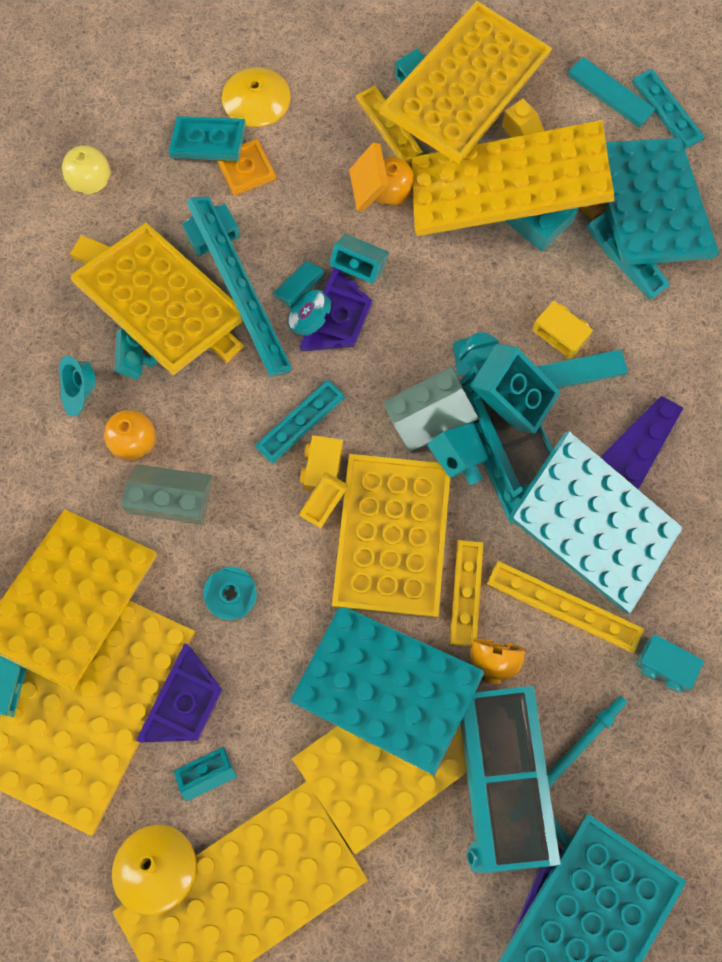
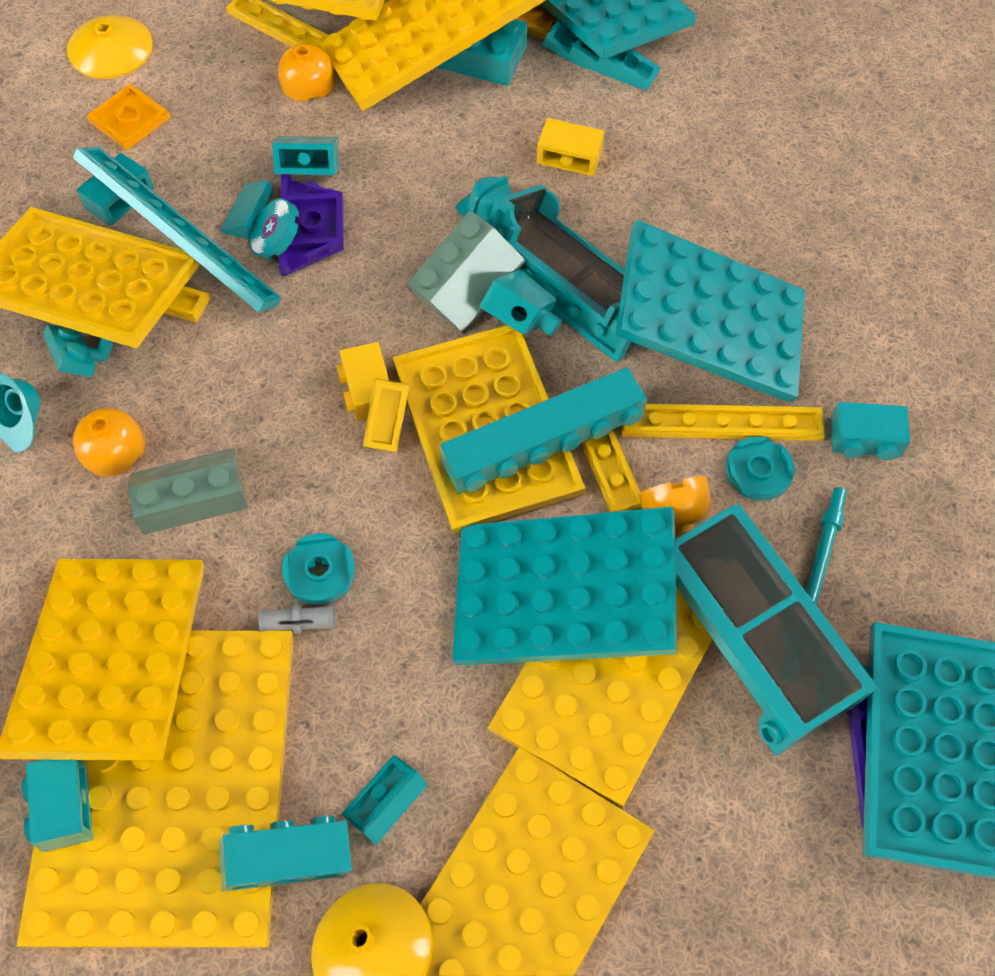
camera: 25 degrees left, 10 degrees down
(124, 785) = (284, 853): none -> teal brick
(183, 702) = (316, 724): dark purple wing -> none
(201, 623) = (297, 619): none -> light grey pin
(207, 138) = (69, 101): teal tile -> none
(300, 421) = (315, 350): teal tile -> none
(368, 177) = (279, 72): light orange tile -> none
(428, 563) = (542, 430): none -> teal brick
(515, 388) = (552, 208): teal brick -> none
(567, 661) = (760, 478): none -> teal tile
(585, 369) = (607, 183): teal tile -> none
(640, 444) = (717, 215): dark purple wing -> none

